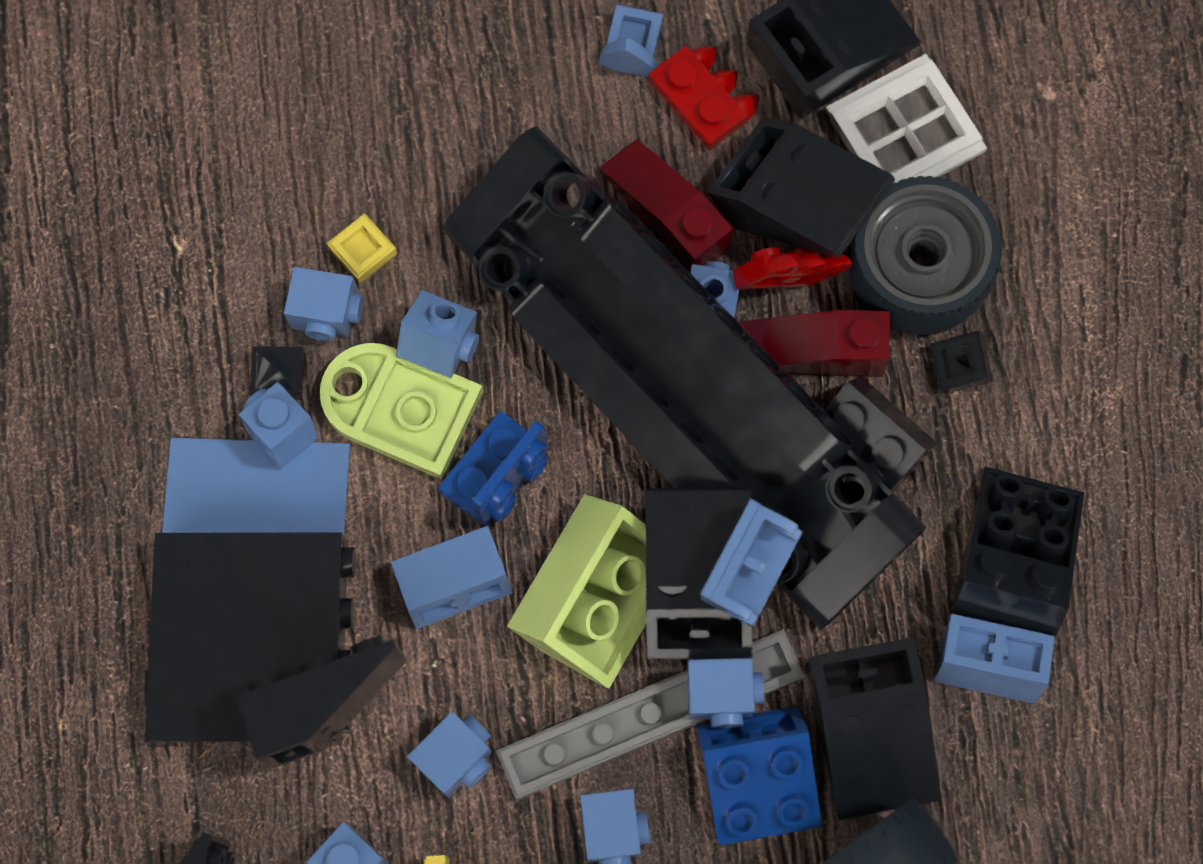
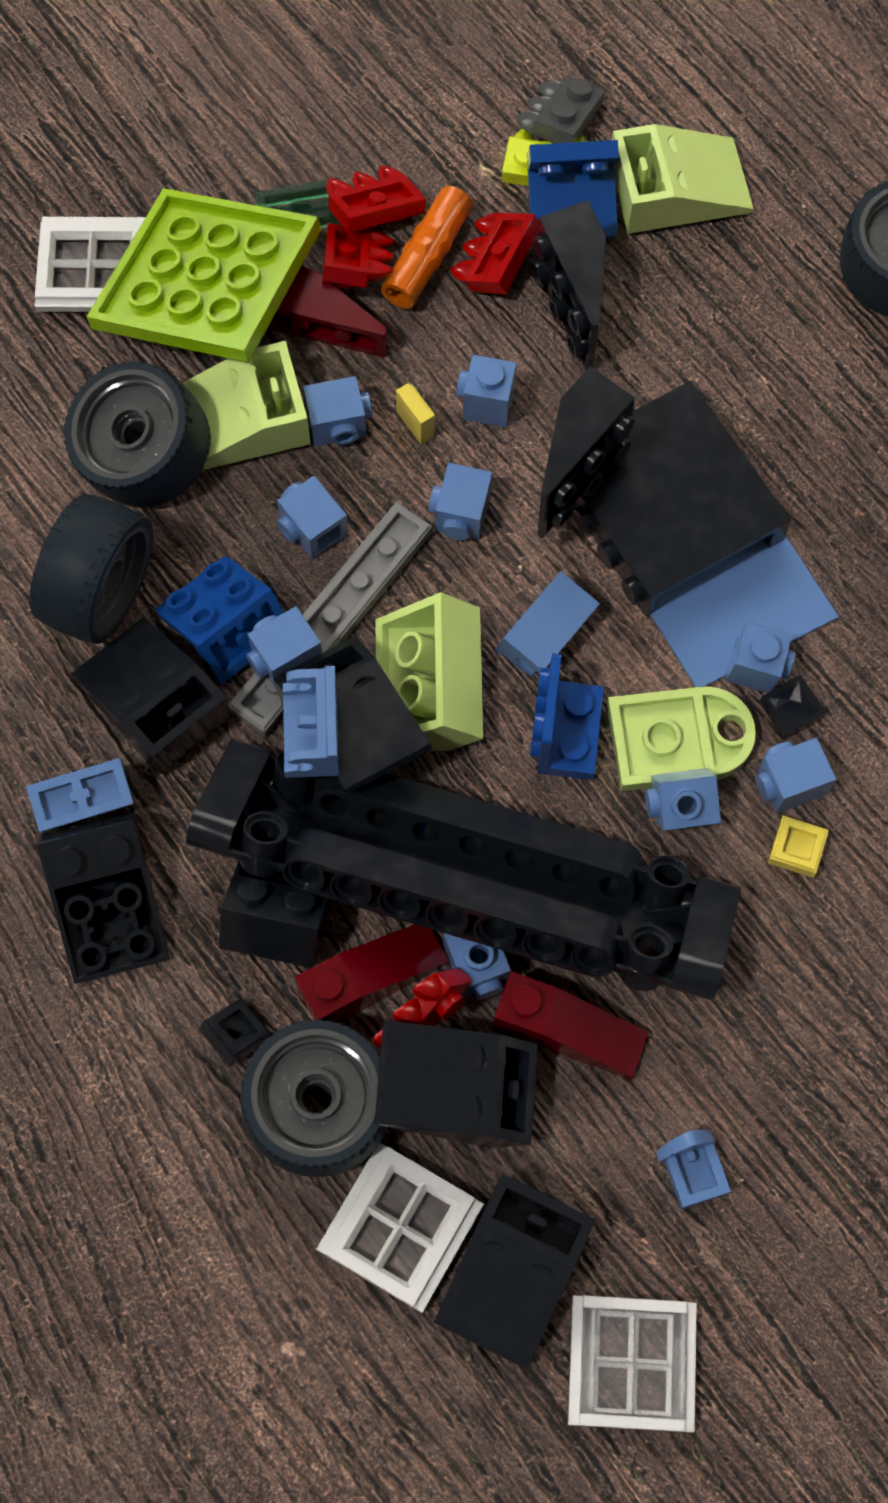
camera: 145 degrees right, 5 degrees down
(701, 96) = (601, 1154): red plate -> none

